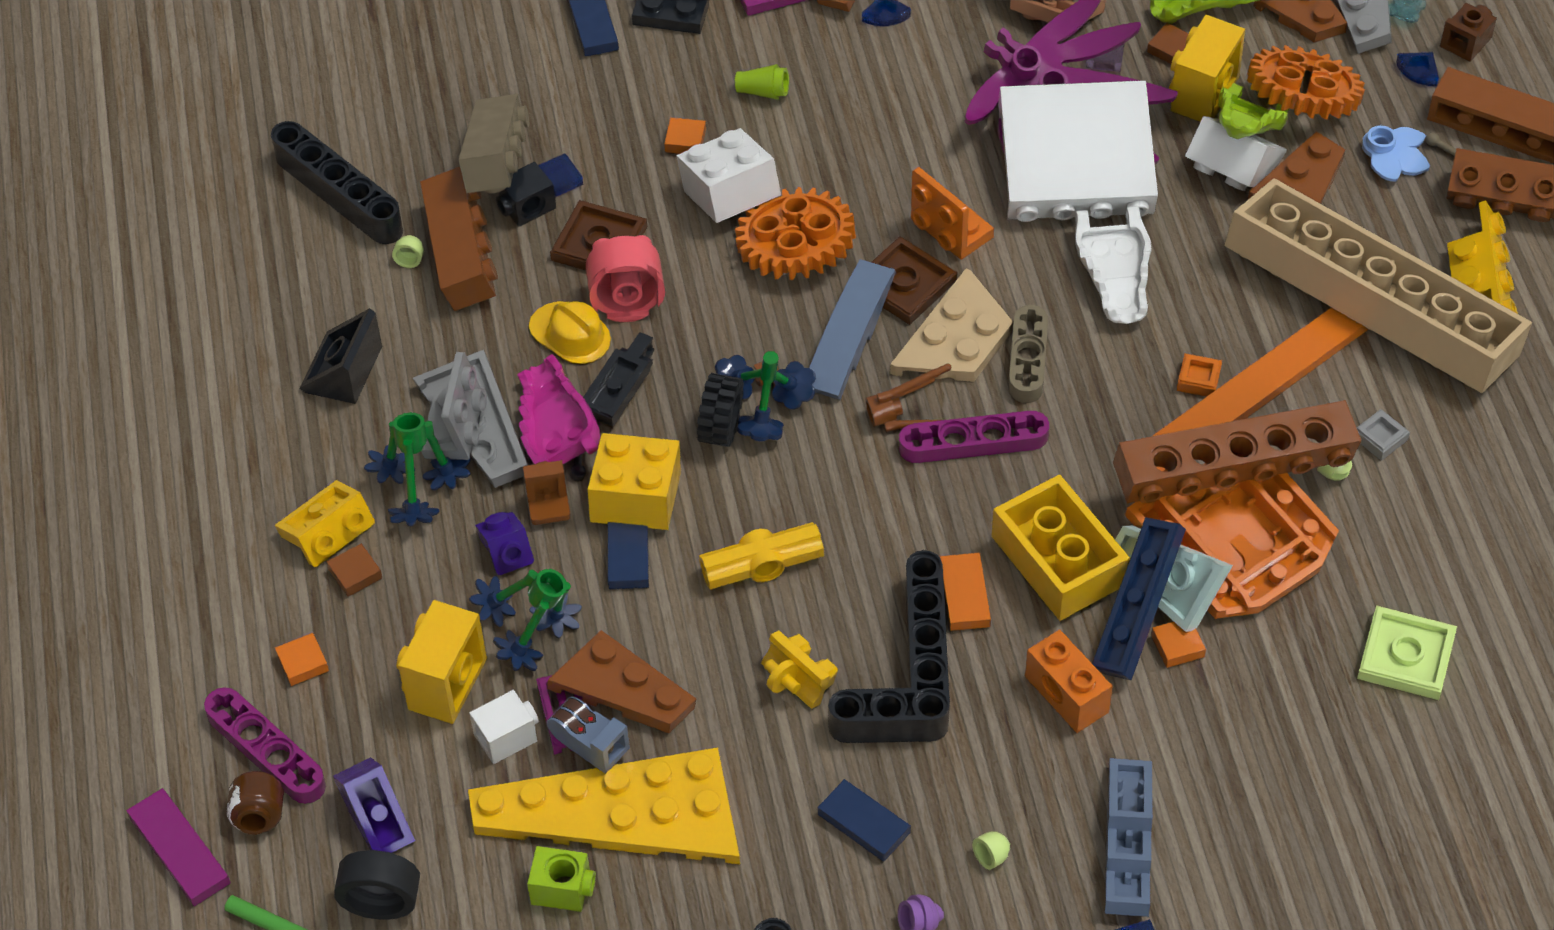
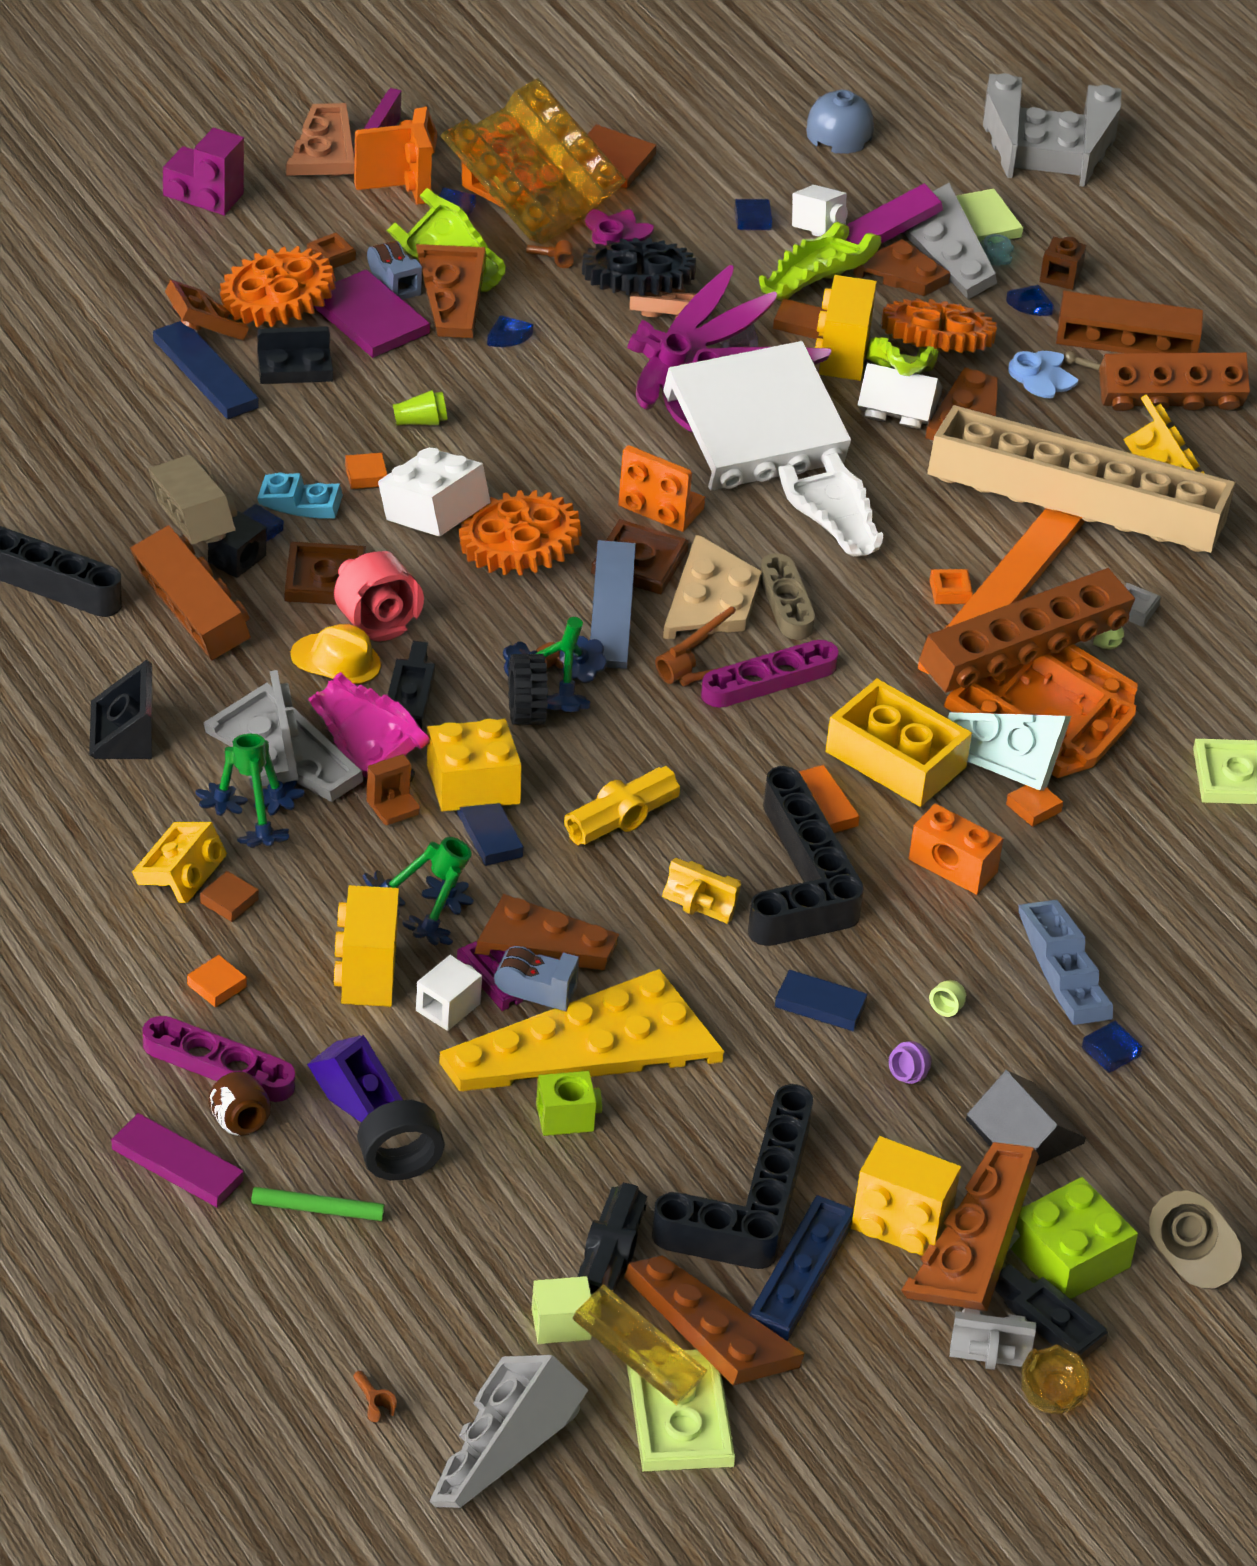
camera: 25 degrees left, 10 degrees down
(408, 251) = (141, 616): yellowish green hinge -> none
(505, 541) = (371, 839): dark purple bracket -> none
(606, 151) = (290, 495): none -> medium azure slope
(1138, 598) = (992, 761): dark blue tile -> none

